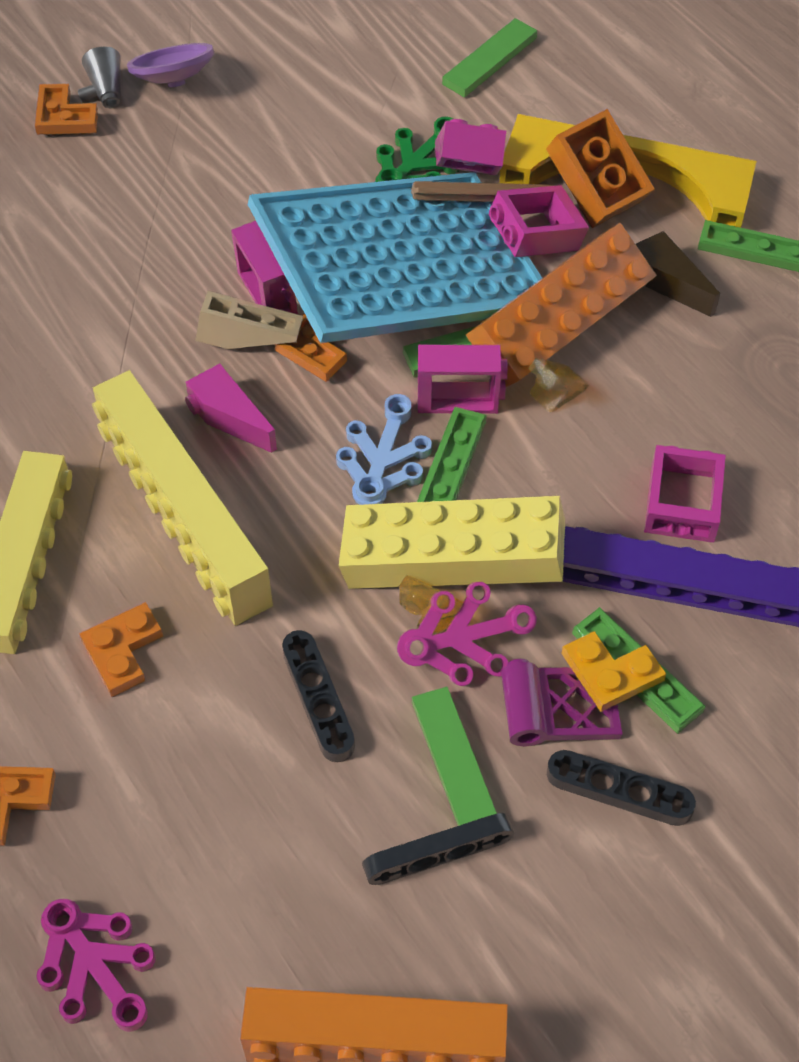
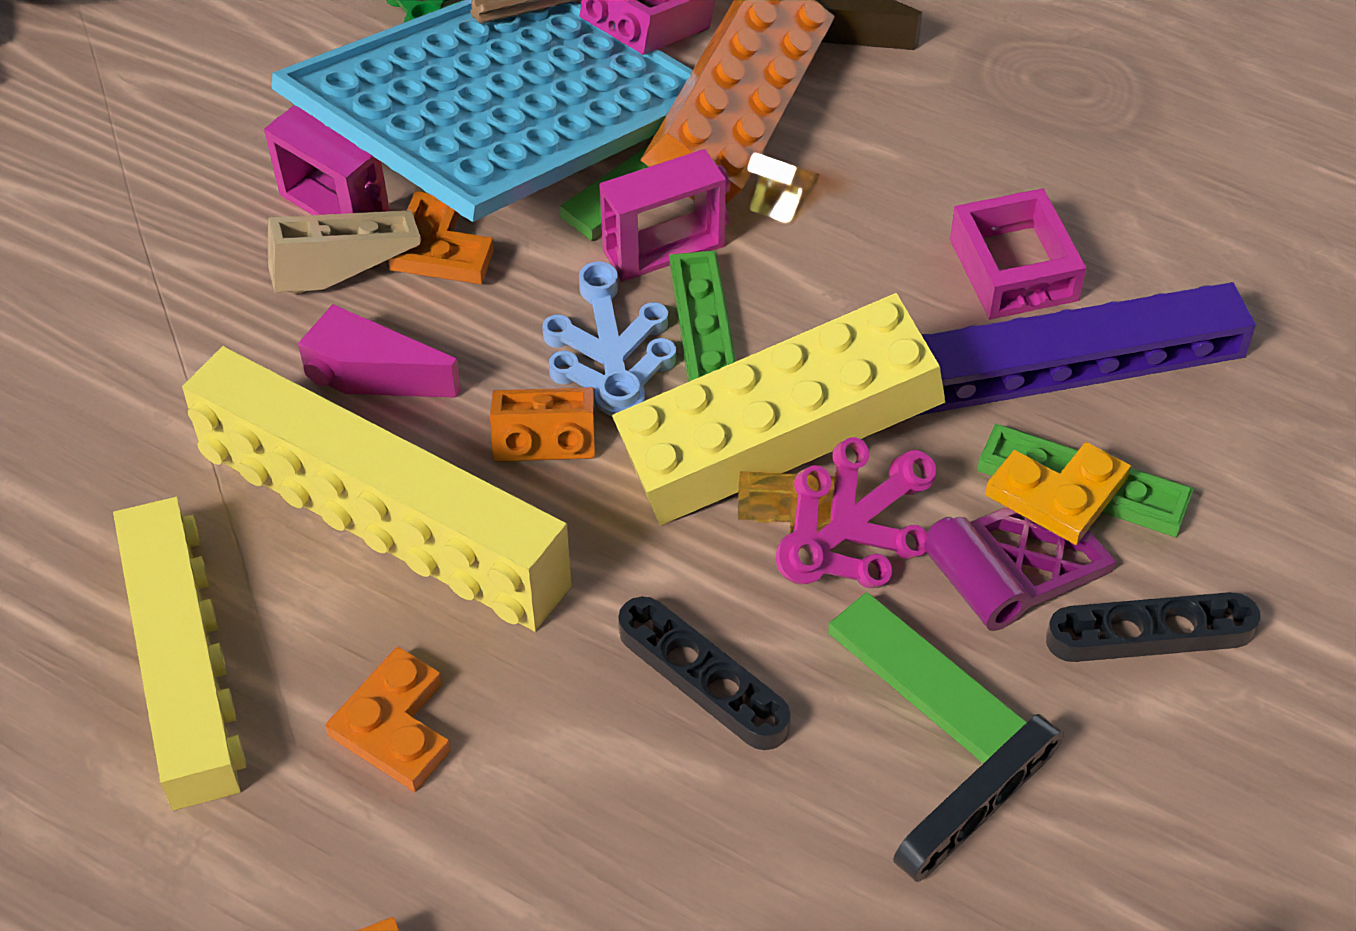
camera: 25 degrees left, 5 degrees down
(310, 491) = (542, 424): none -> orange bracket

